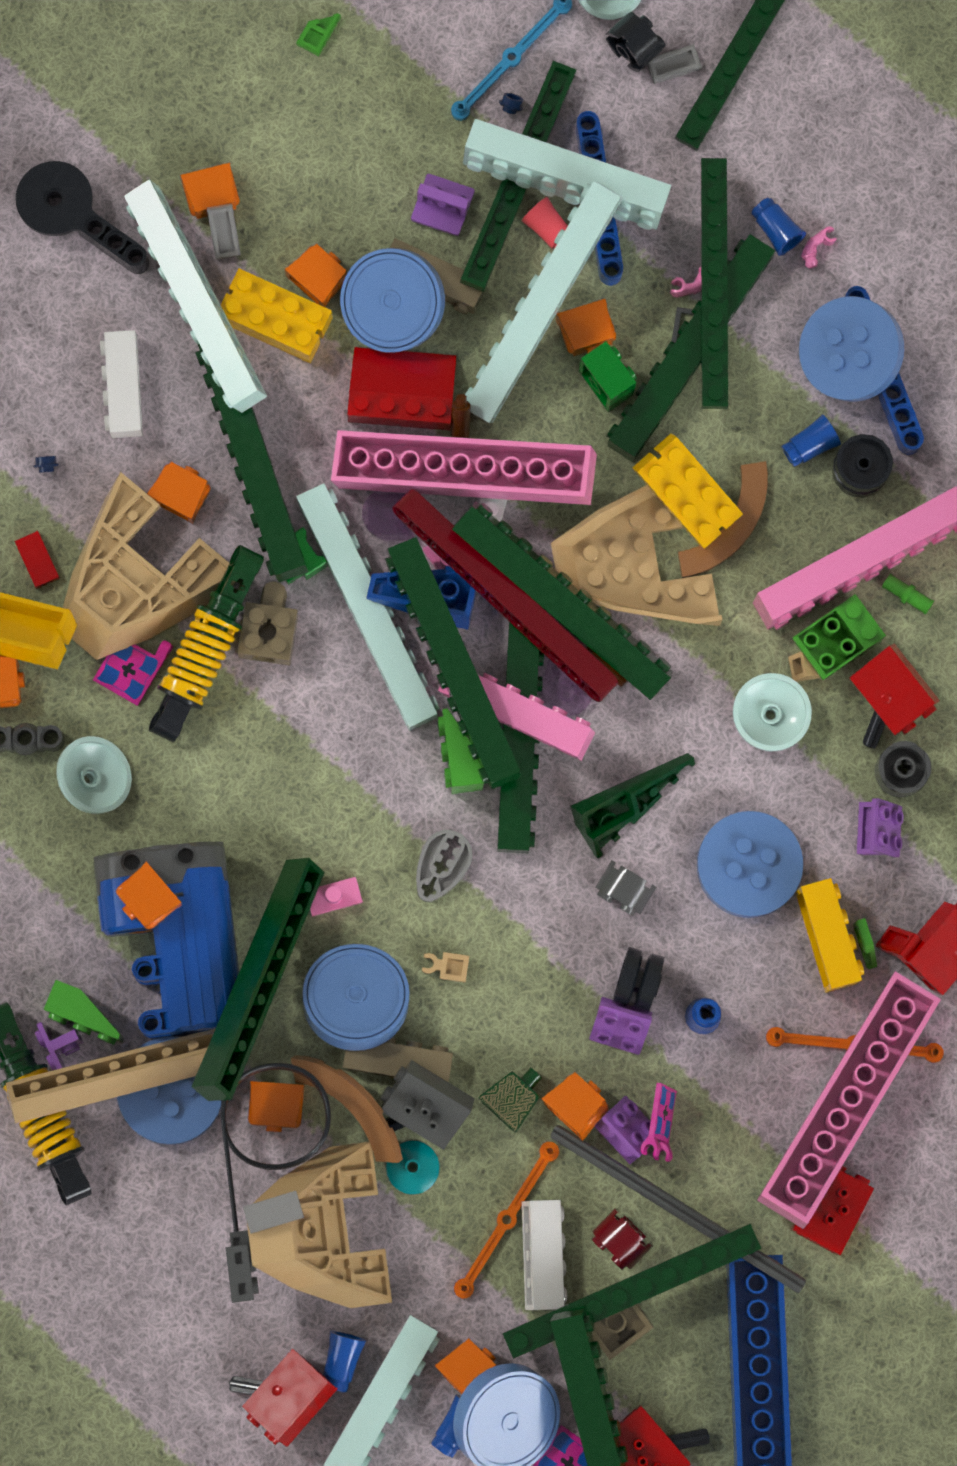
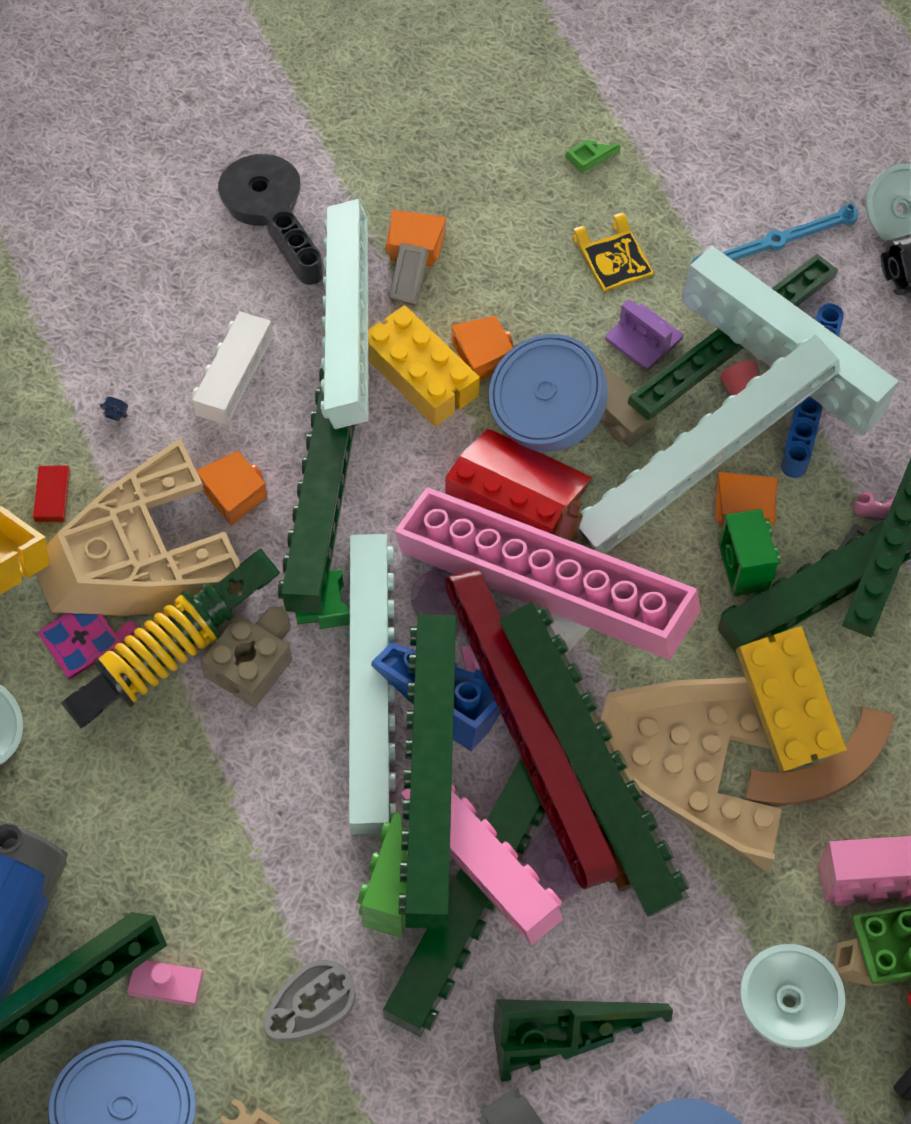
camera: 30 degrees right, 20 degrees down
(385, 135) = (615, 258): none -> flag
(511, 103) = (759, 273): dark blue plate -> none

